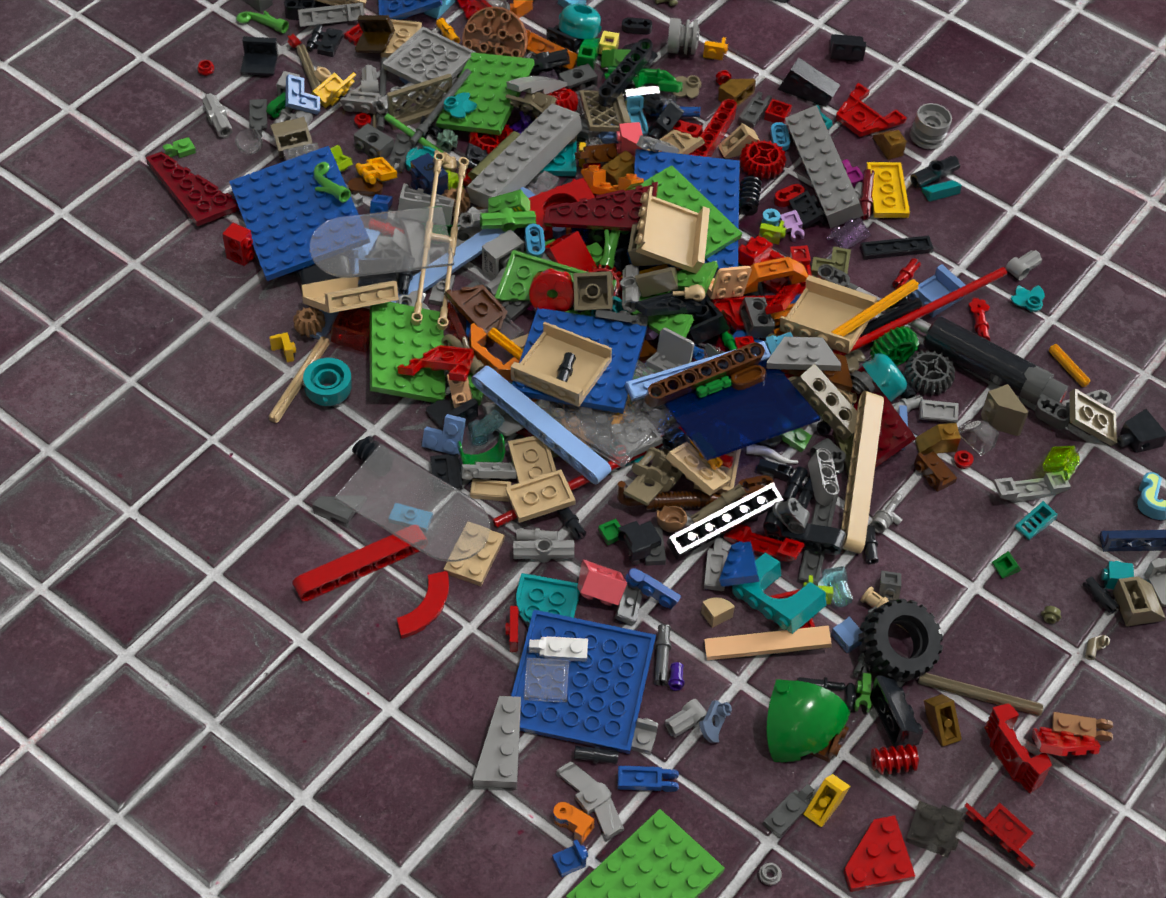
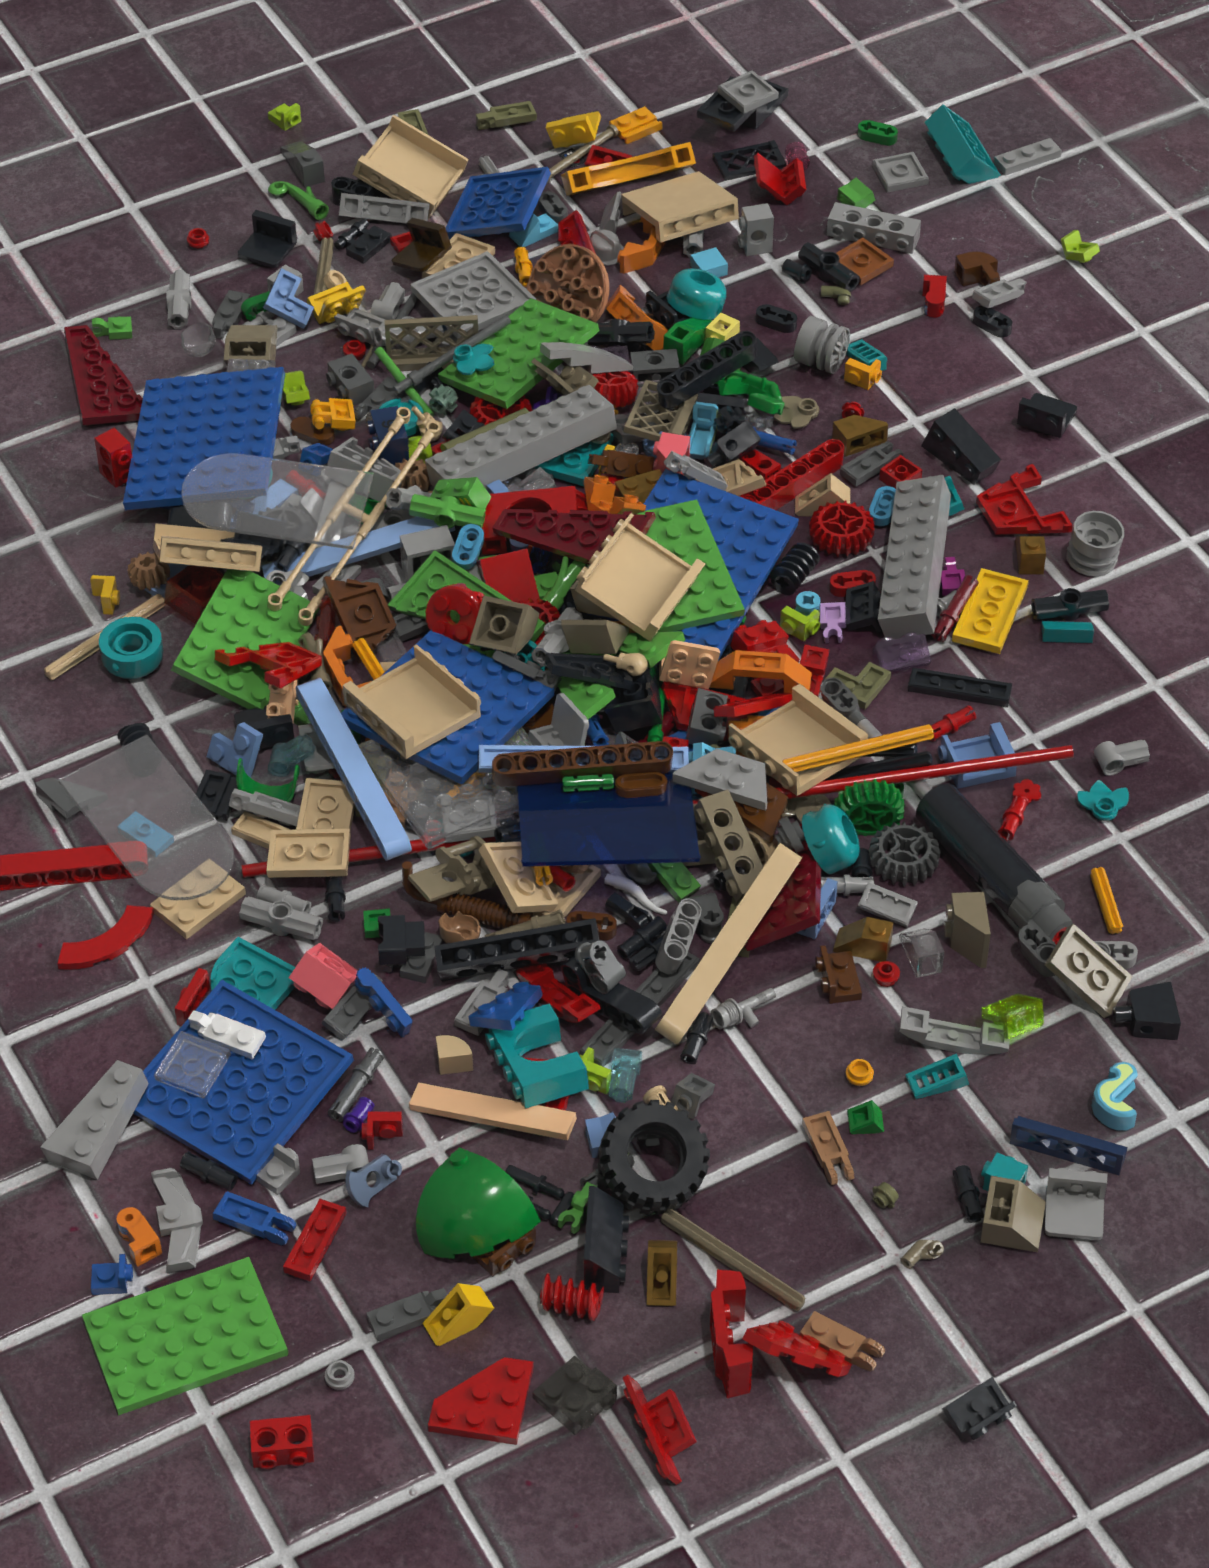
camera: 25 degrees right, 5 degrees down
(339, 192) = (257, 424): bright green plant -> none
(565, 369) = (412, 708): black pin -> none
(696, 678) = (382, 1125): none -> red bracket
(698, 780) = (314, 1240): none -> red plate
(711, 35) = (871, 352): none -> teal slope
(986, 534) = (859, 1072): none -> light orange plate
(997, 592) = (828, 1145): none -> medium nougat hinge

